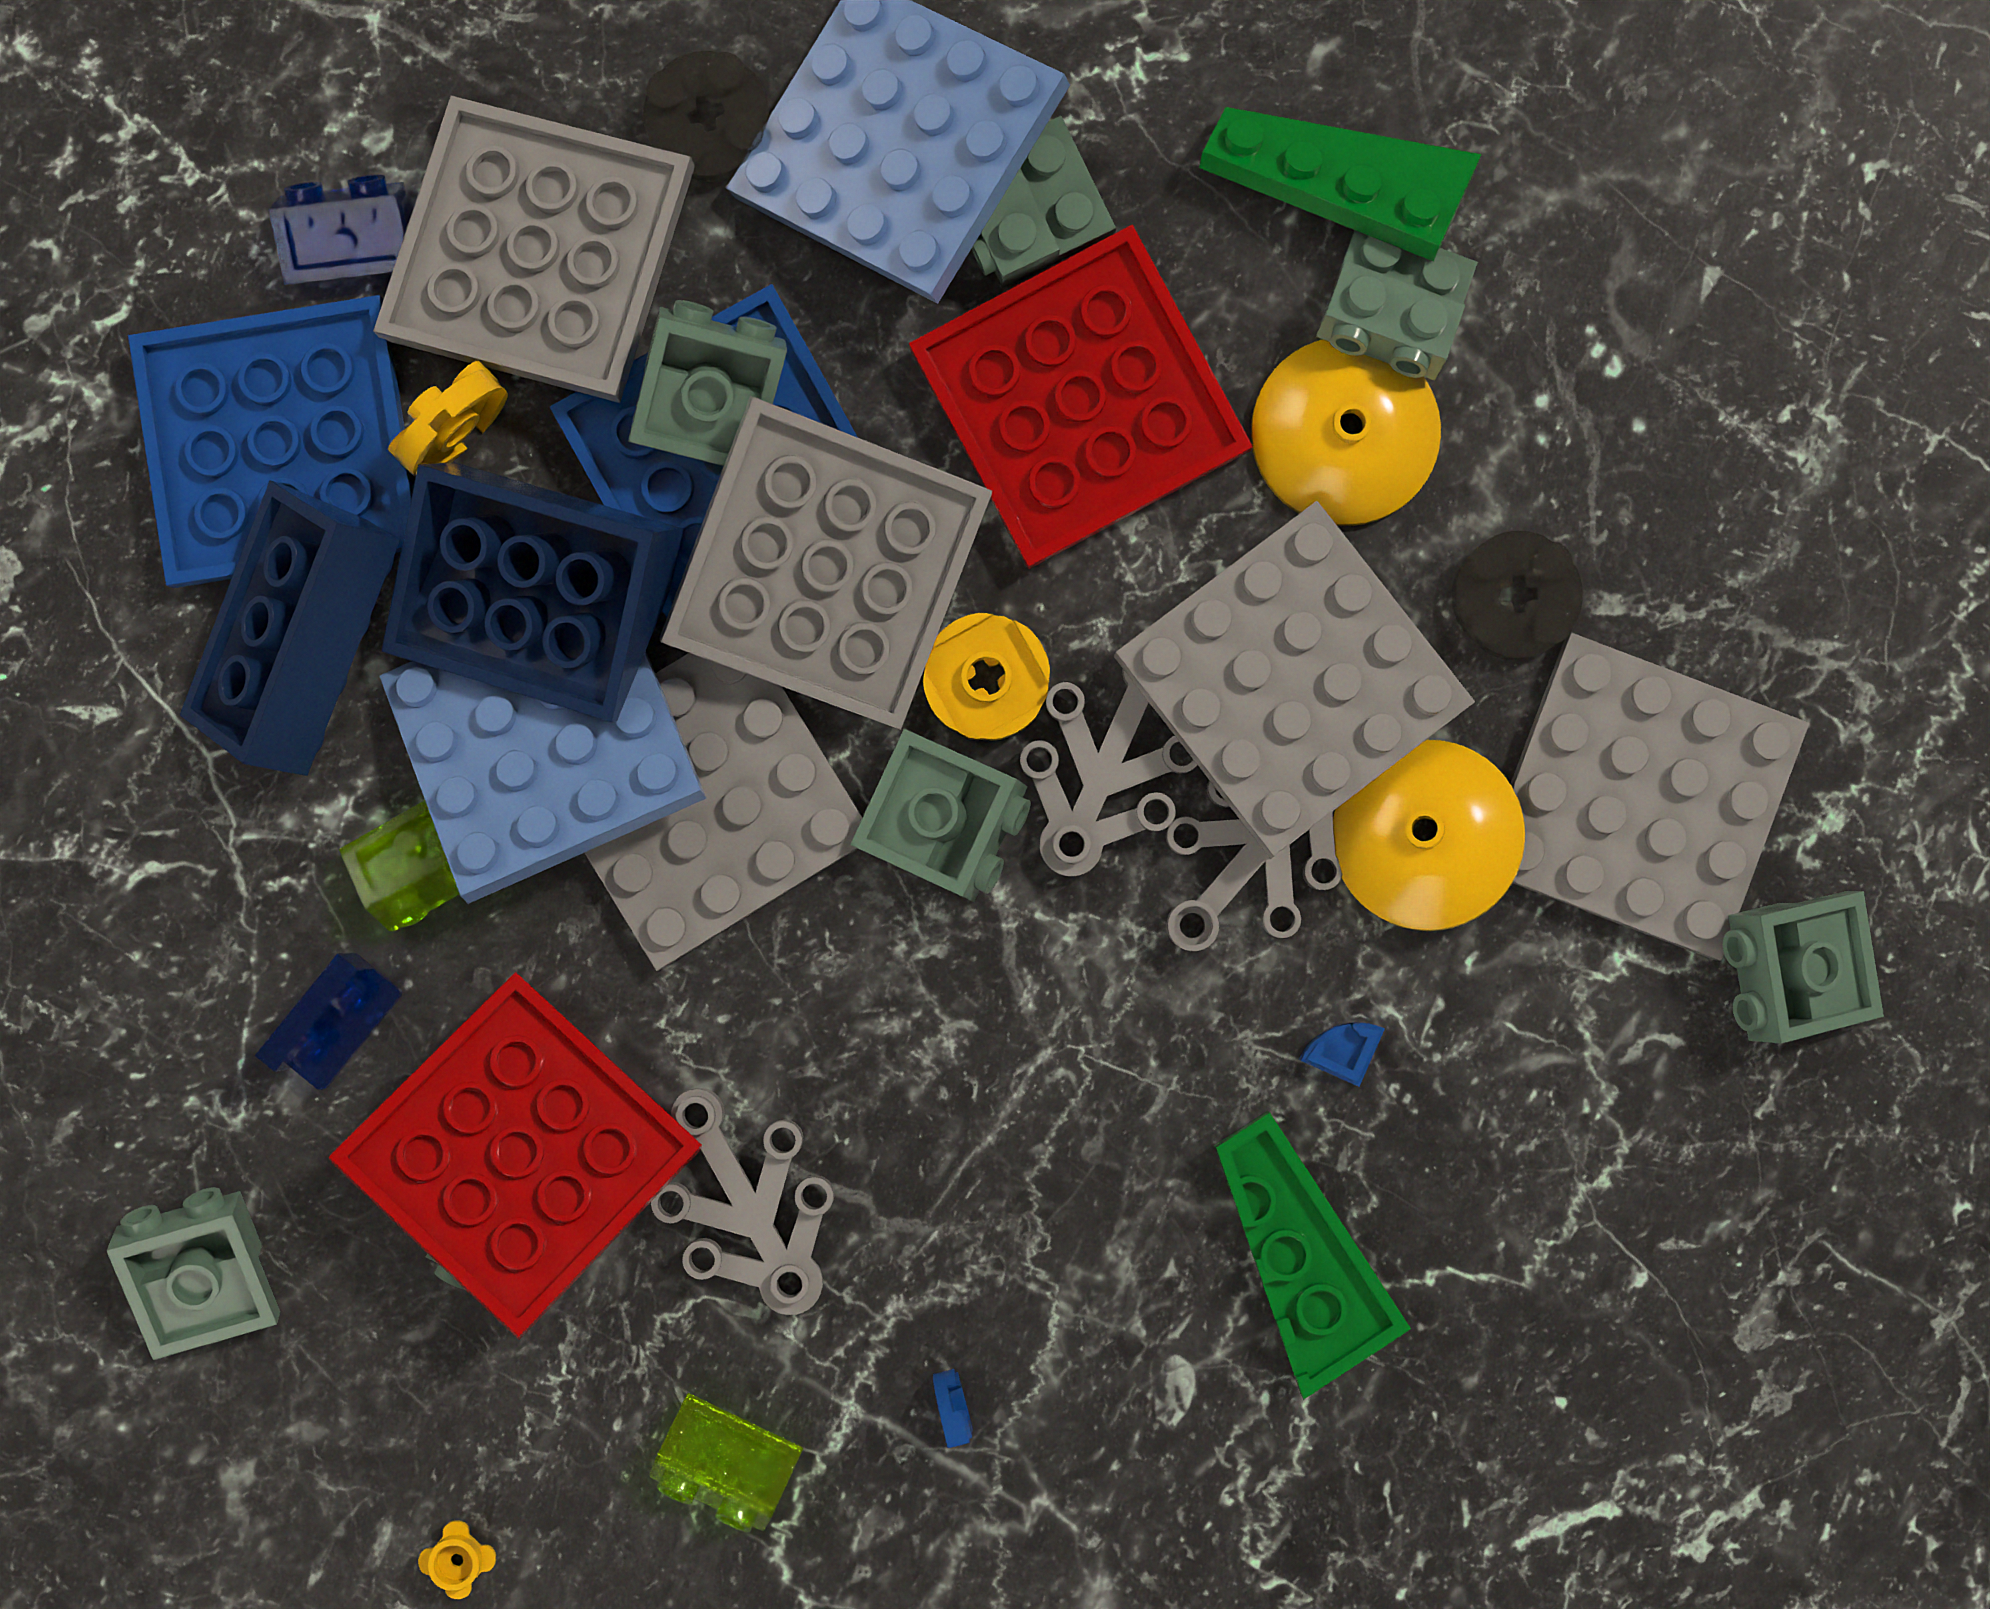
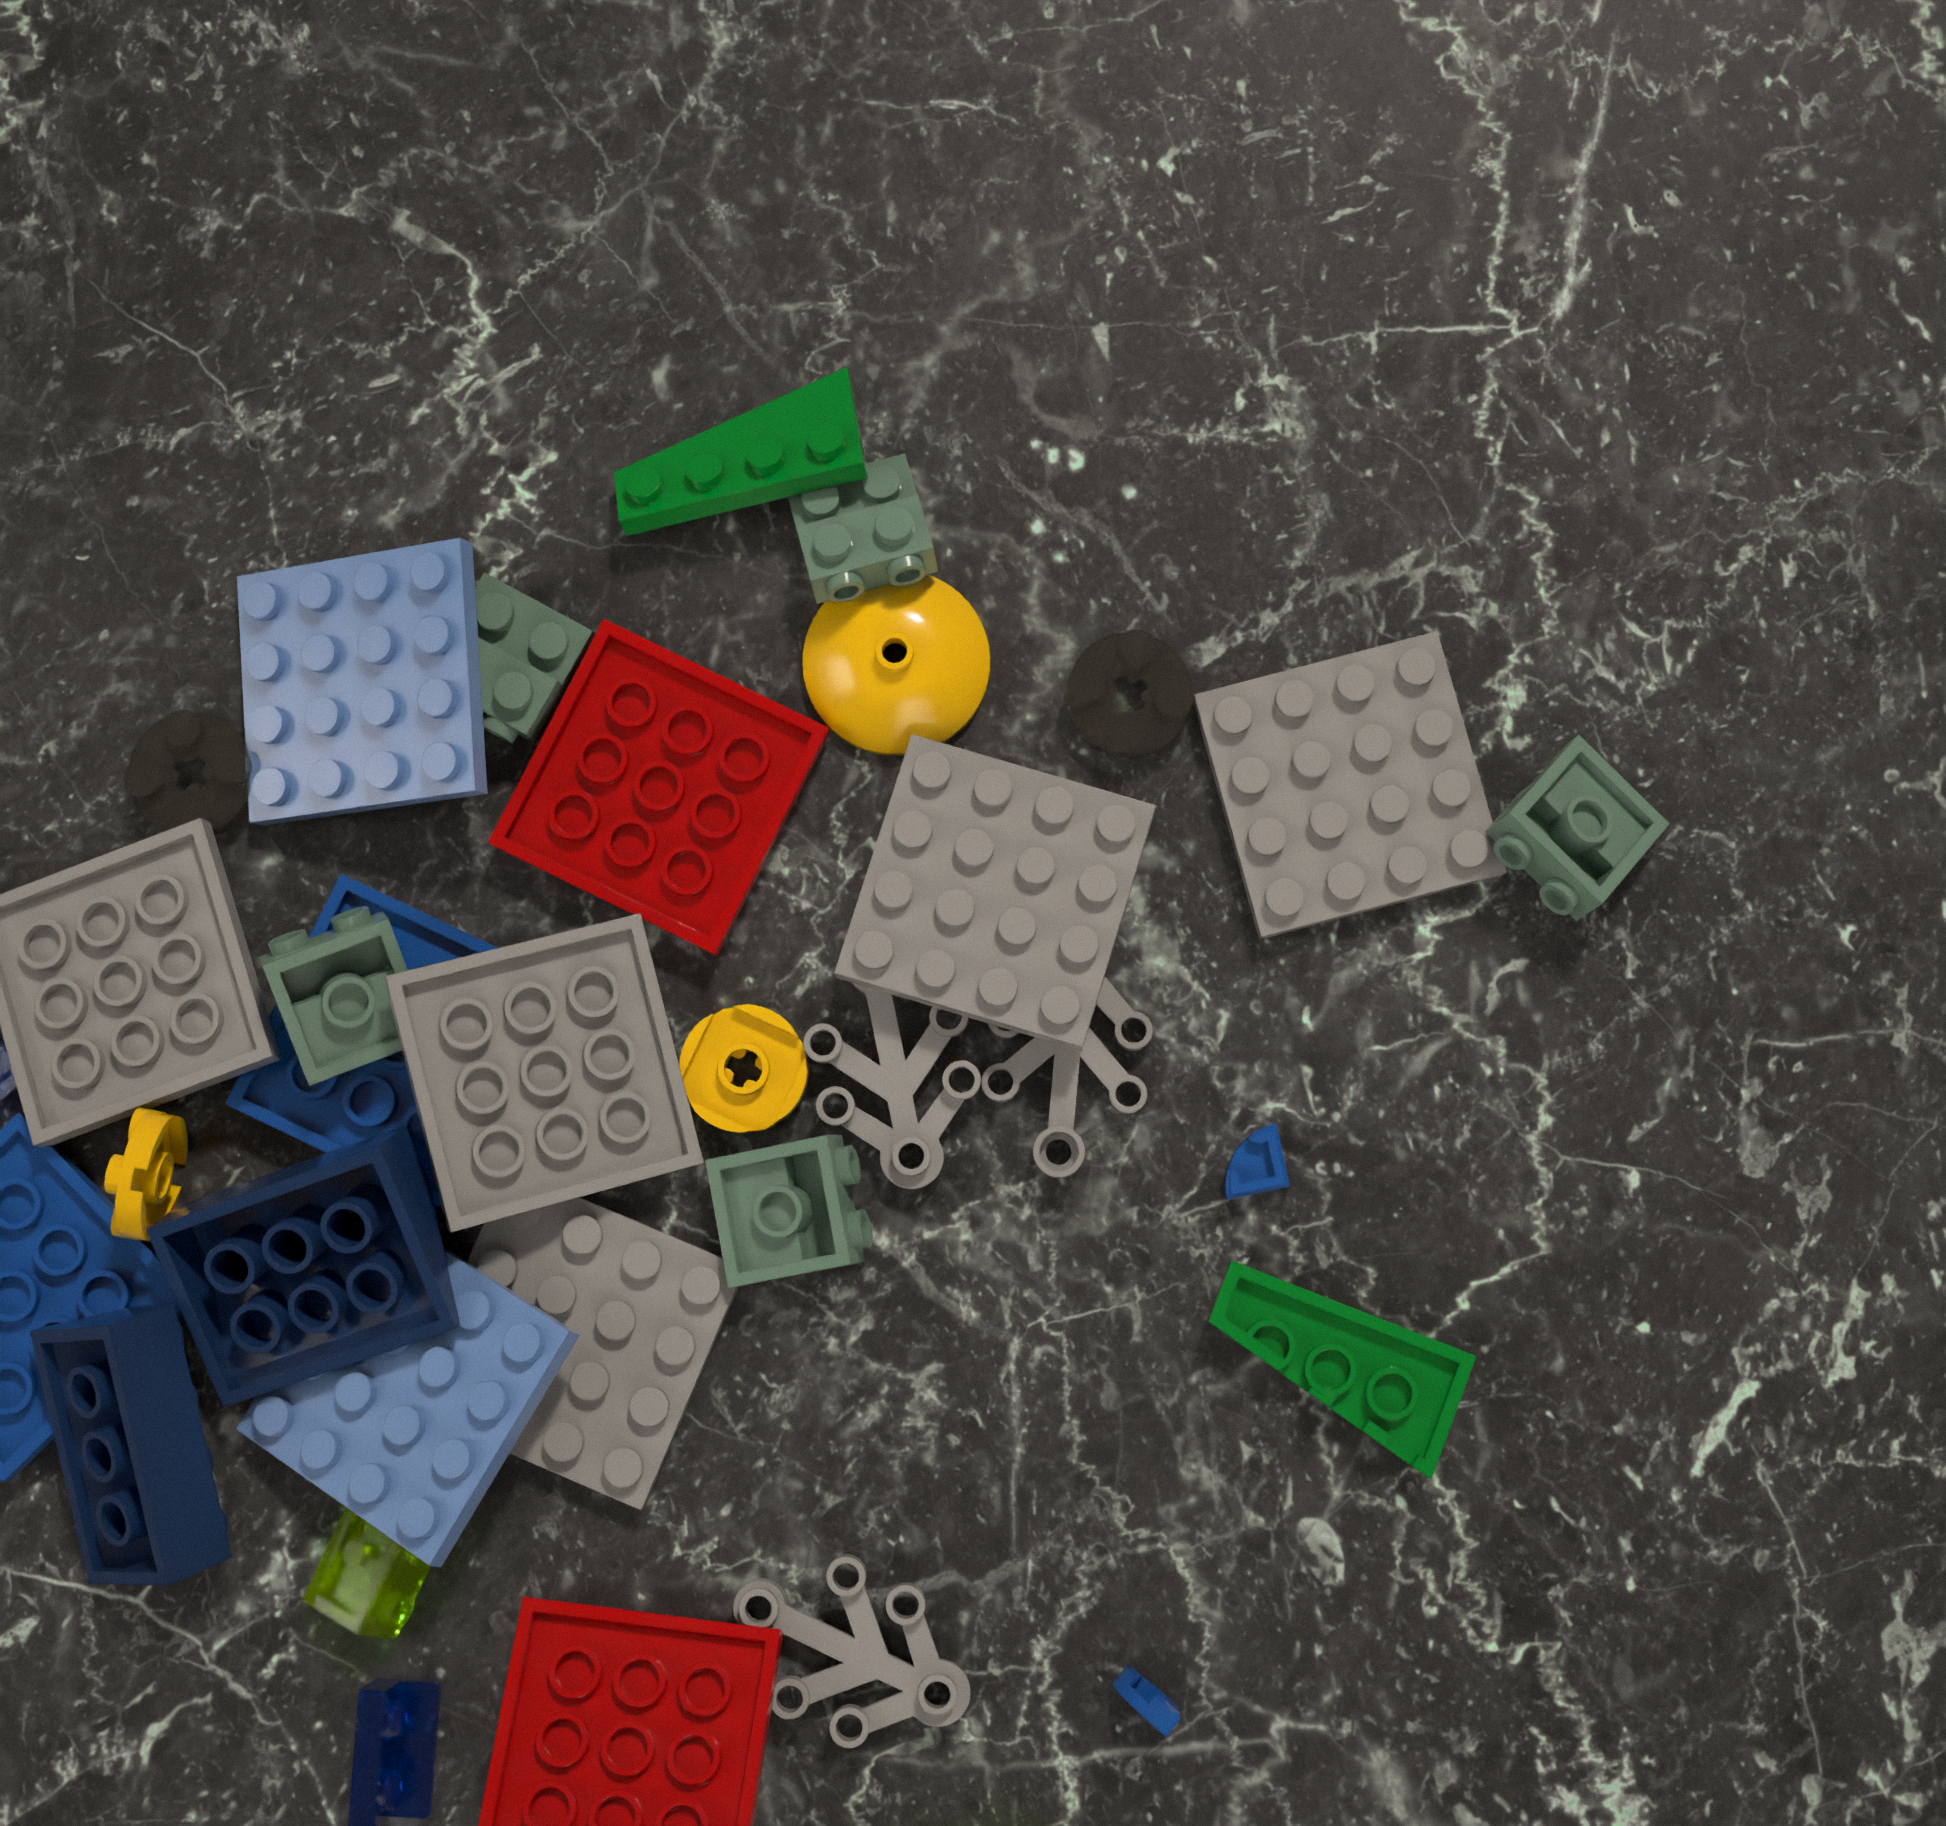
camera: 30 degrees left, 5 degrees down
(1456, 872) = (1240, 950): yellow dish -> none

